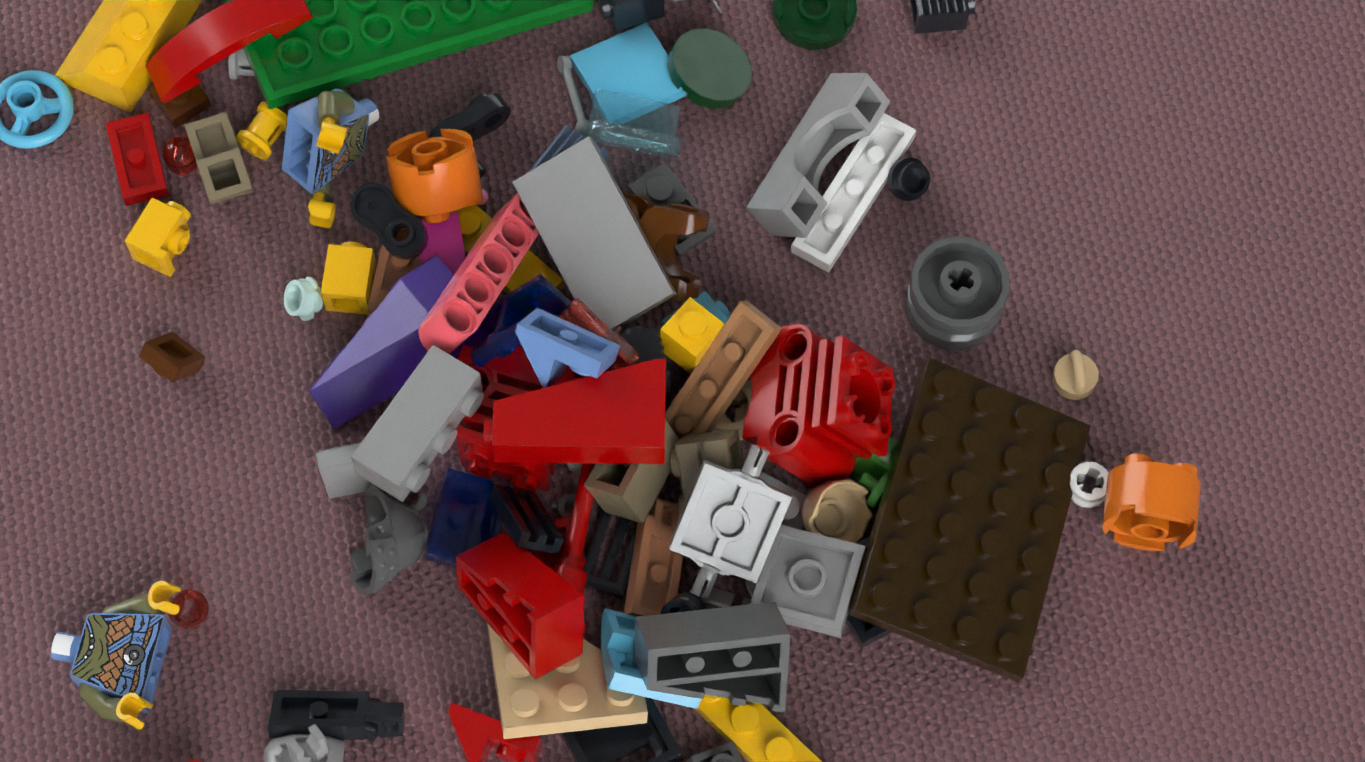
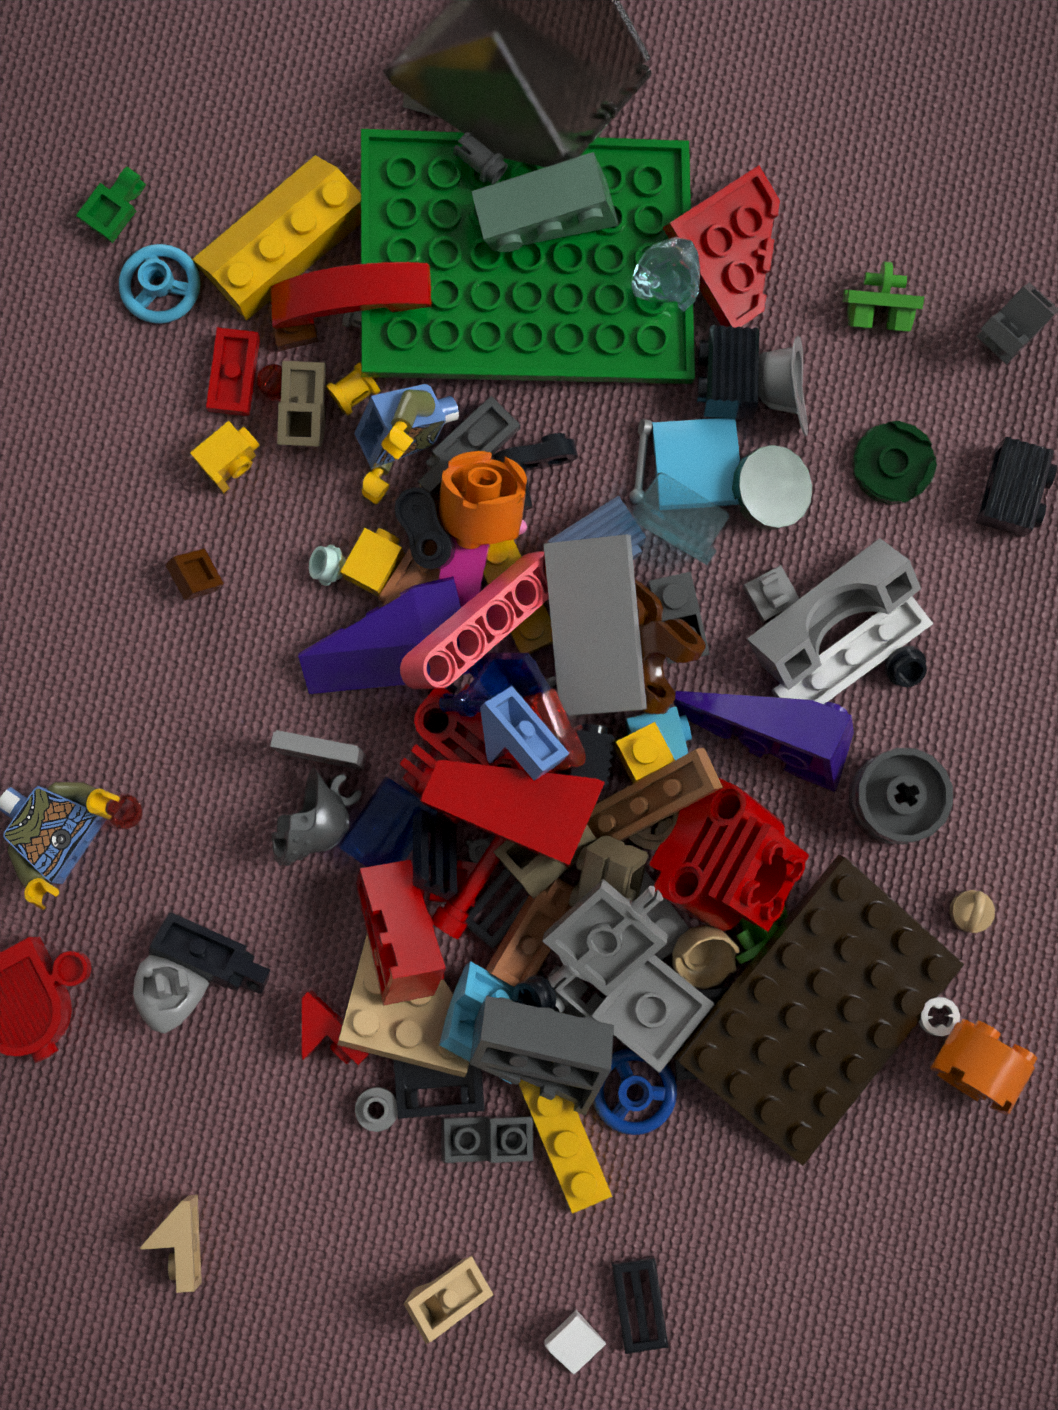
camera: 25 degrees right, 15 degrees up
(409, 114) = (483, 430): none -> dark grey hinge
(419, 424) = (368, 748): light grey brick -> none
(749, 164) = (771, 593): none -> light grey tile
(827, 272) = (800, 732): none -> dark purple wedge
(832, 662) = (615, 1118): none -> blue piece

